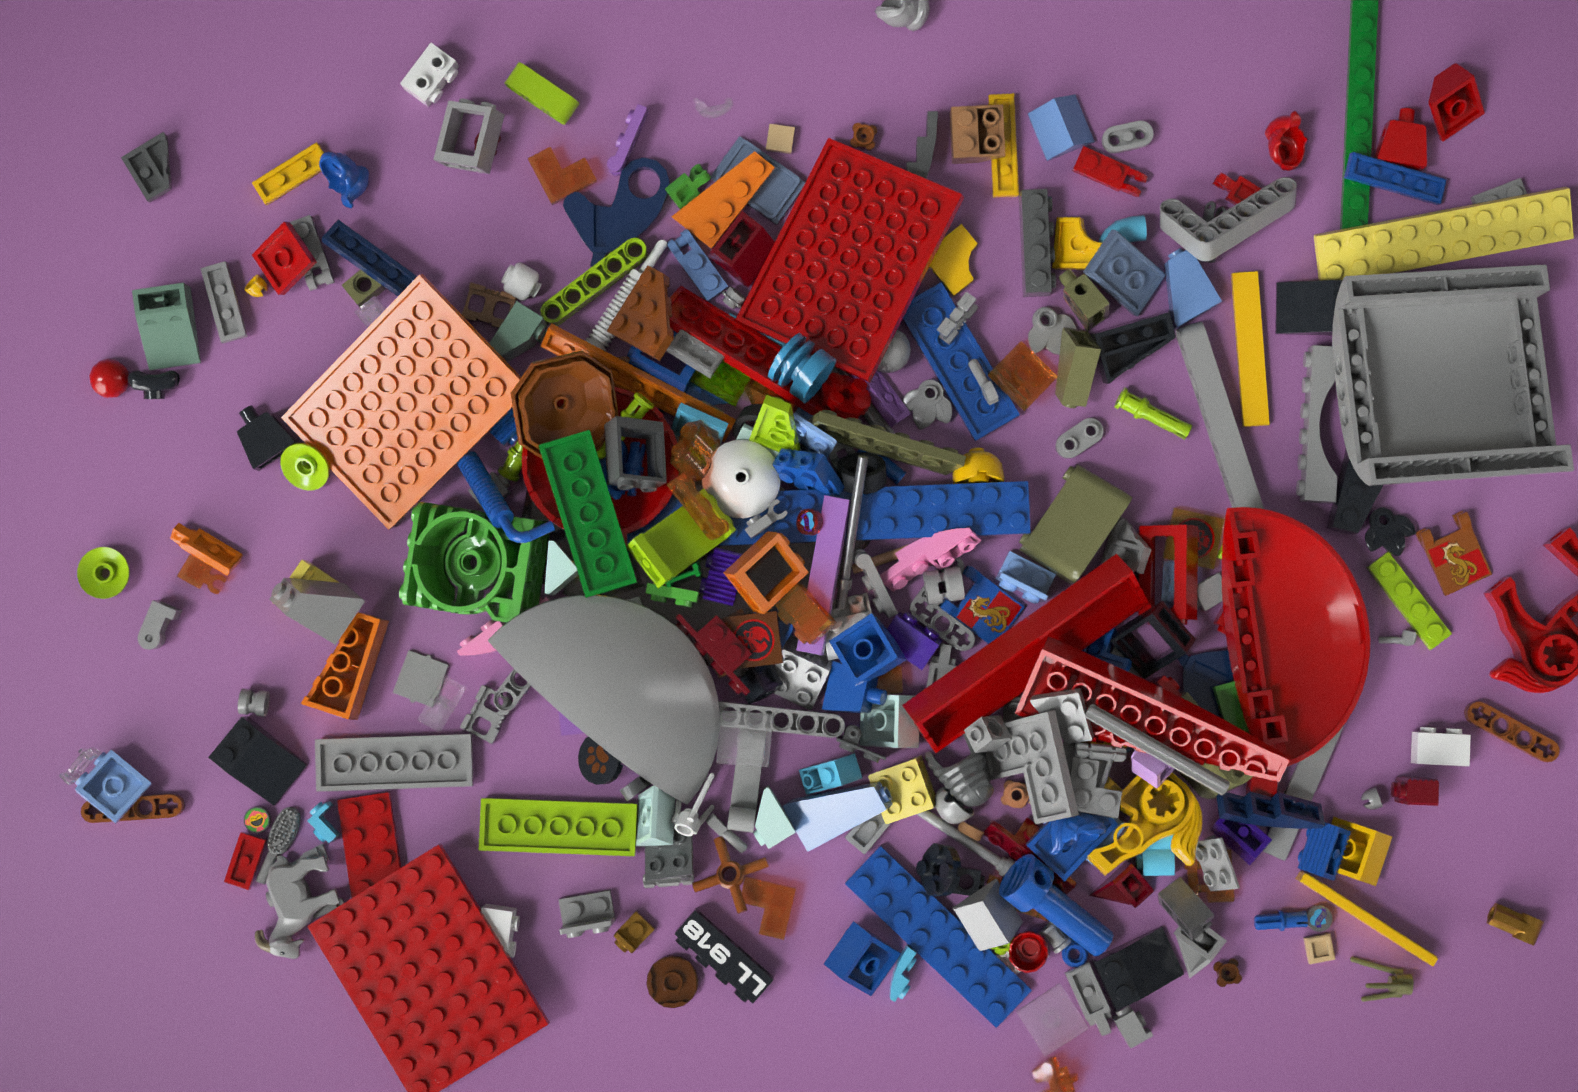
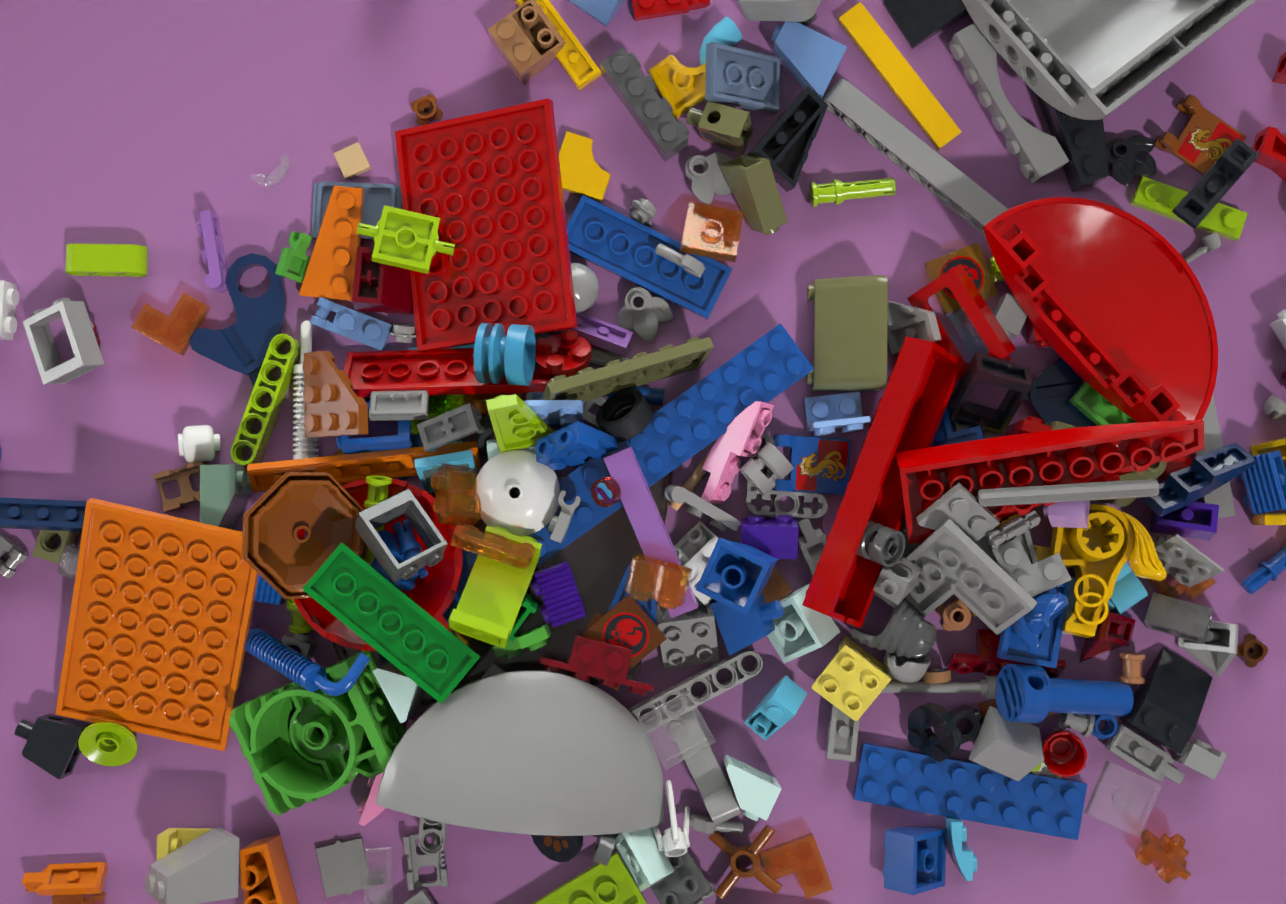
camera: 35 degrees left, 0 degrees up
(723, 395) = (450, 427): none -> flat silver hinge
(744, 585) = (568, 580): orange window -> none
(761, 682) = (657, 668): black brick -> none
(783, 229) = (405, 239): none -> lime plate
(831, 813) = (803, 742): slope -> none
(844, 581) = (672, 524): flat silver bar -> none
(850, 743) = (775, 669): dark grey hinge -> none
(925, 147) = (487, 81): dark grey slope -> none
(965, 309) = (621, 206): light grey piece -> none
(979, 325) = (643, 211): none -> light grey plate
(979, 468) = (728, 340): yellow cylinder -> none
(992, 698) = (881, 544): none -> dark grey wheel
(1079, 438) = (800, 255): light grey plate -> none
(1110, 860) = (1105, 612): none -> yellow piece
(1125, 924) = (1131, 667): none -> nougat bush
(1438, 594) = (1215, 183): none -> black slope

